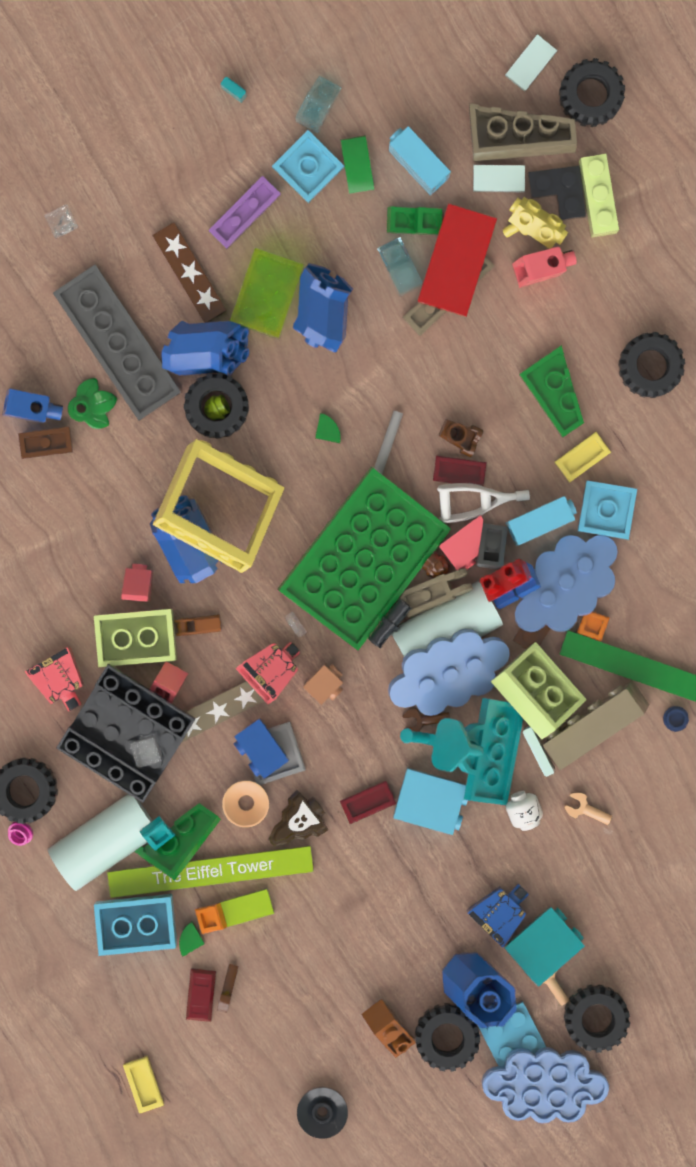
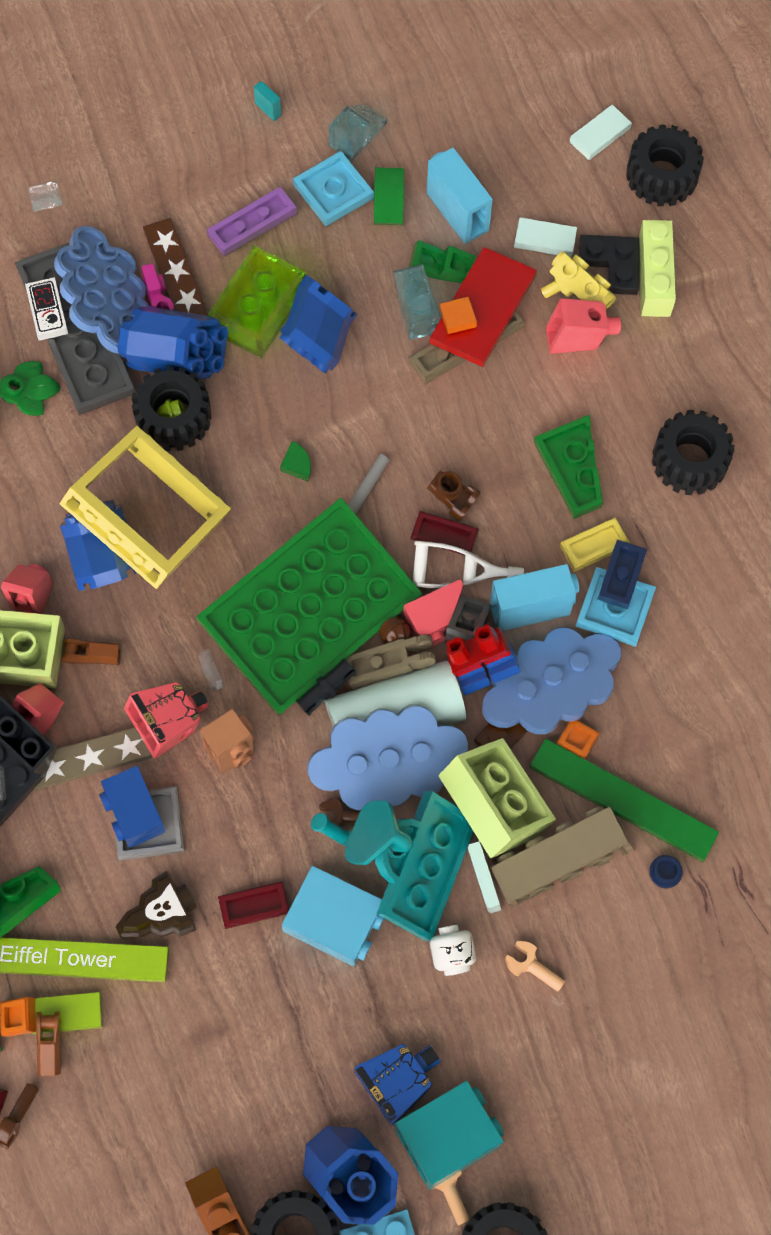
camera: 10 degrees right, 20 degrees down
(91, 334) = (46, 309): none -> tile
(133, 305) = (99, 284): none -> medium blue plate
(175, 292) = (154, 286): none -> dark pink plate
(239, 936) = (48, 1047): none -> dark orange bar
(242, 817) = (89, 860): light nougat piece -> none
(438, 277) = (458, 315): none -> orange tile
(518, 134) = (577, 191): dark tan wedge -> none
(608, 486) = (622, 574): none -> dark blue plate

